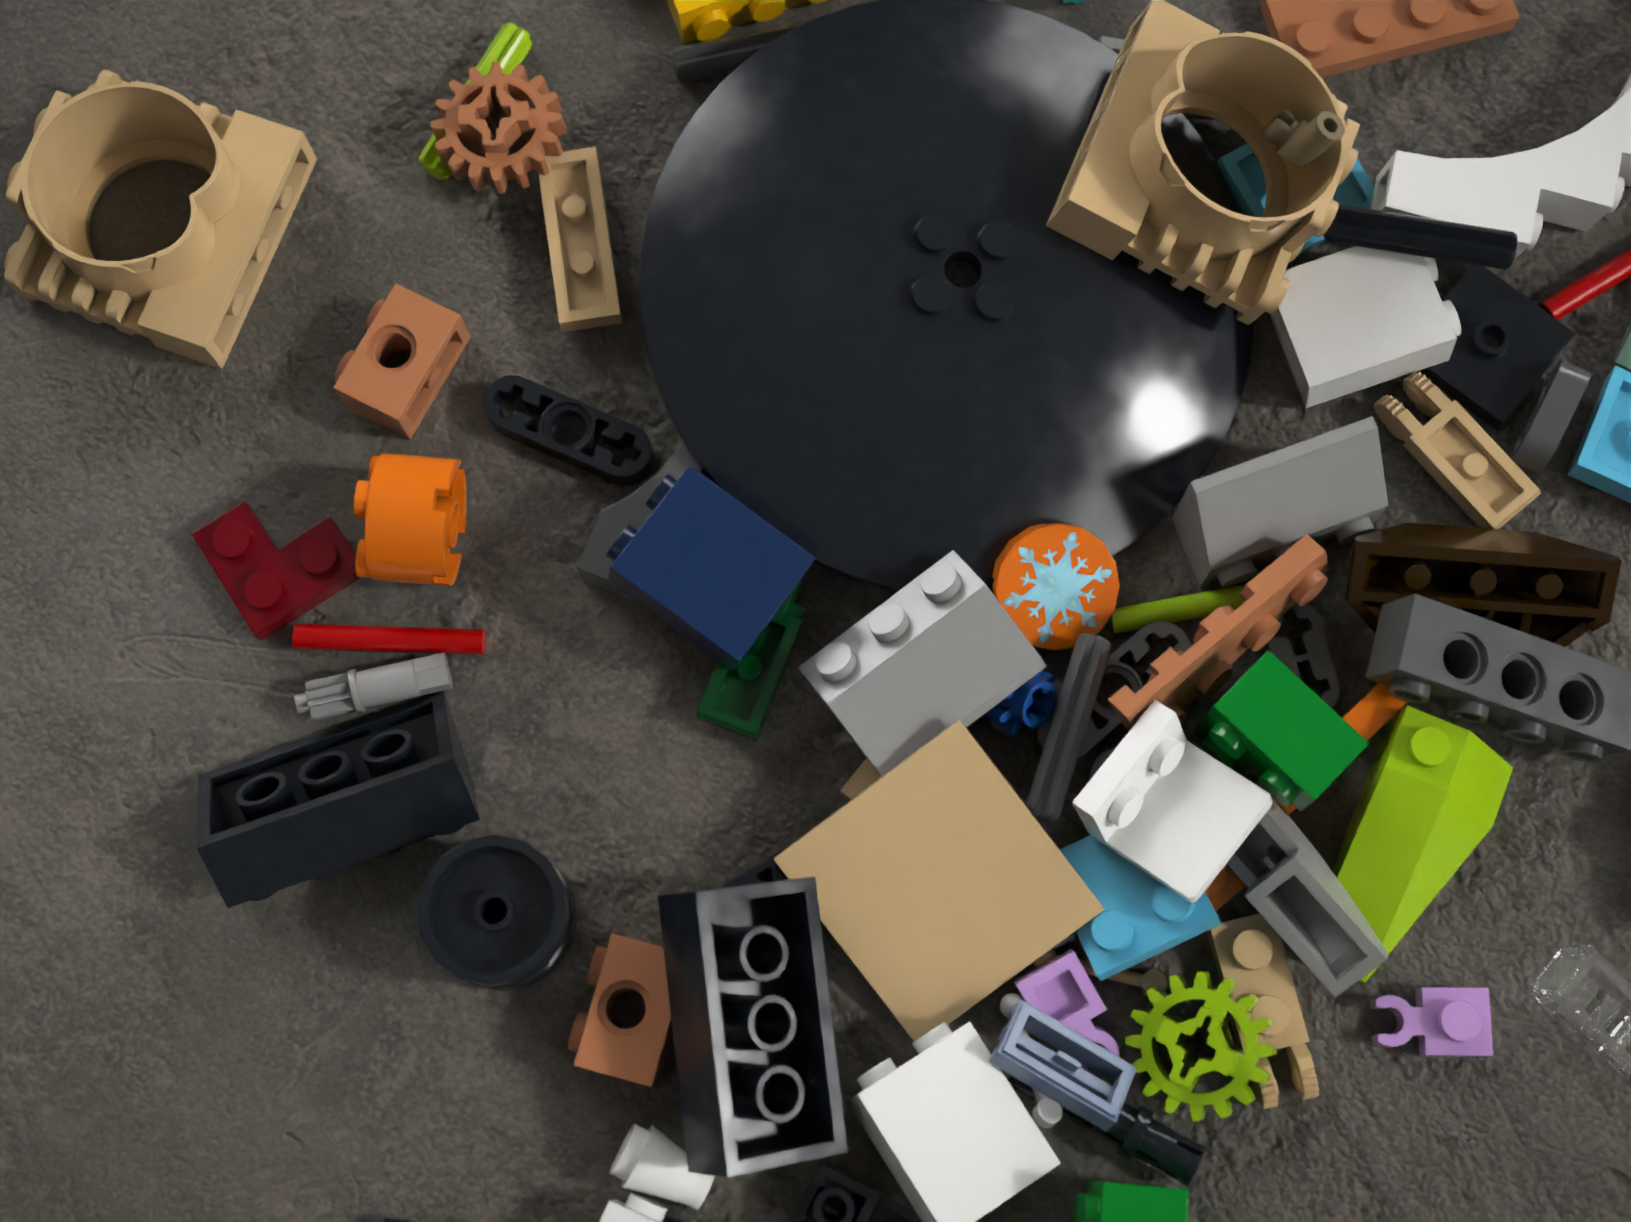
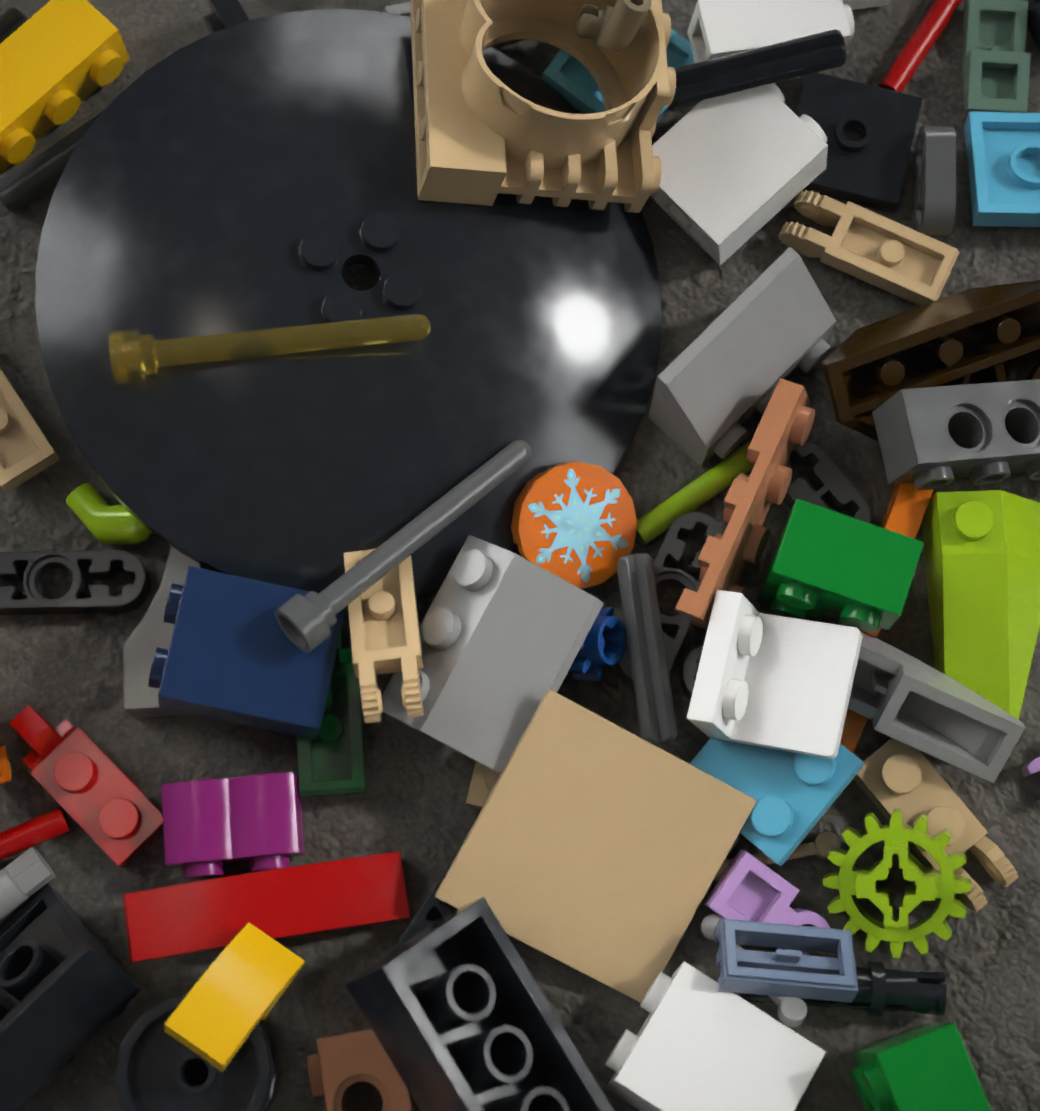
camera: 30 degrees left, 0 degrees up
(517, 623) = (89, 786): none -> red hinge
(557, 859) = (233, 996): none -> yellow slope
(622, 799) = (276, 901): none -> red slope
(627, 712) = (232, 822): none -> magenta brick
(637, 398) = (107, 523): none -> lime arm
(729, 258) = (139, 355): none -> clear yellow piece
(775, 557) = (309, 617): none -> dark grey piece
(838, 596) = (386, 637): none -> tan hinge

